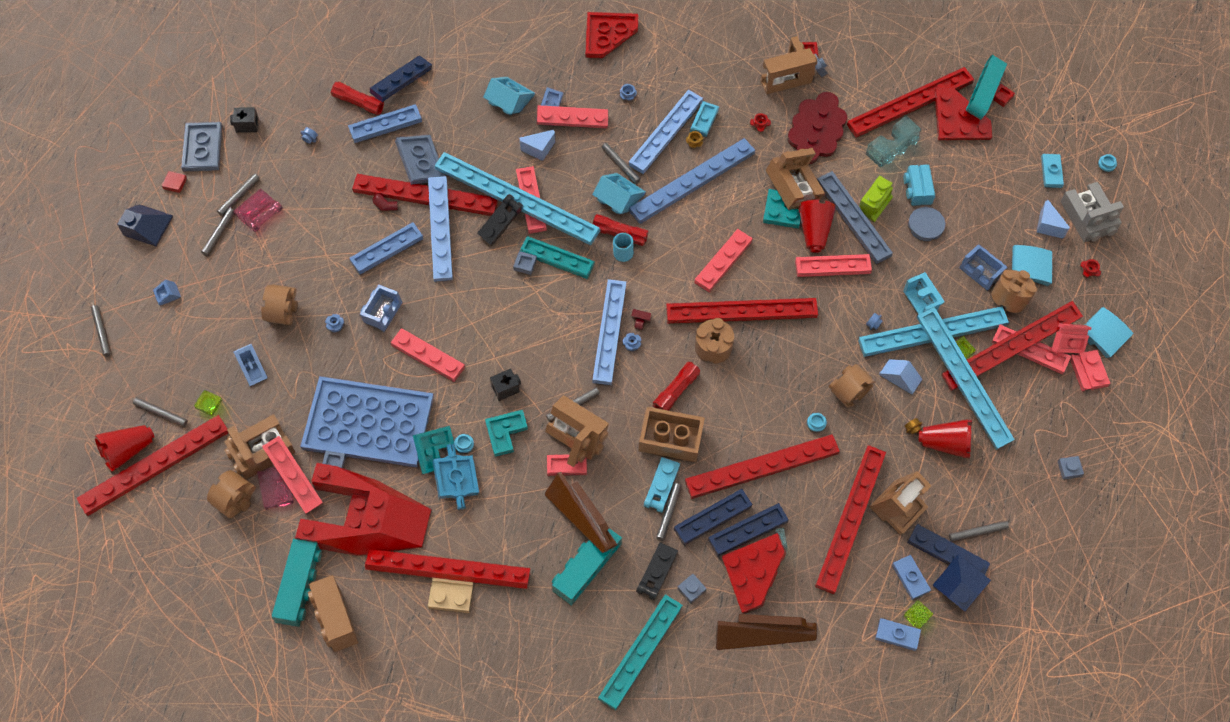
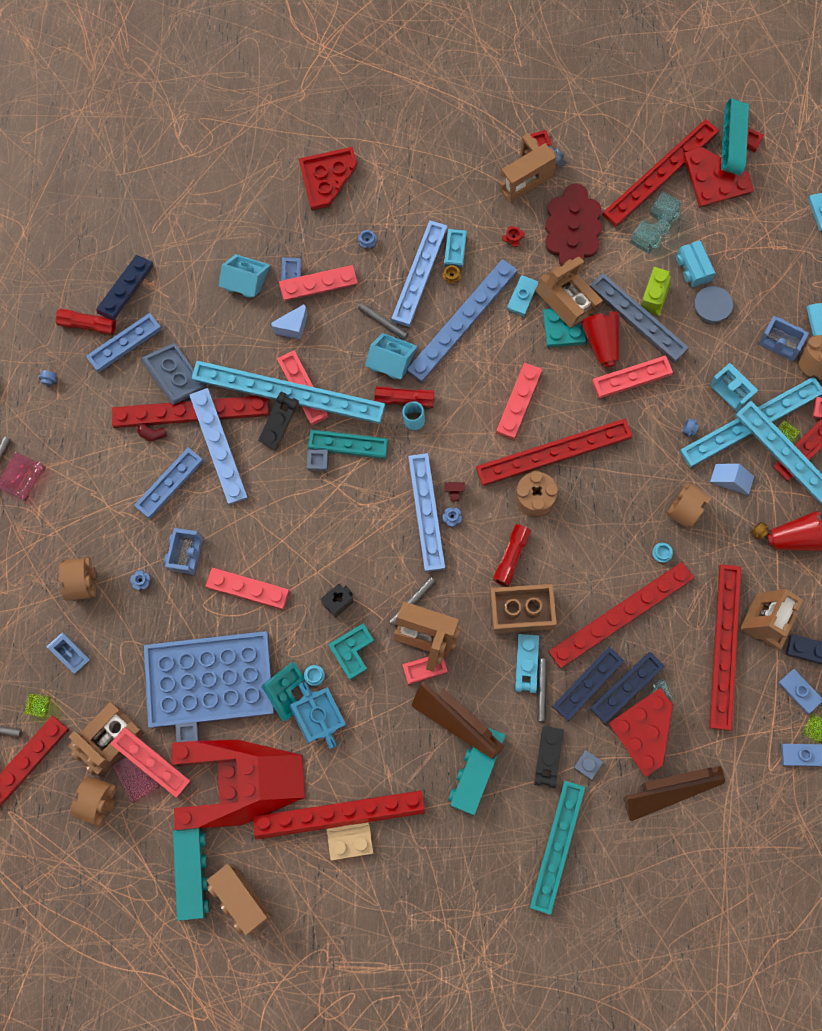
camera: 10 degrees left, 10 degrees up
(753, 173) = (522, 295): none -> medium azure plate

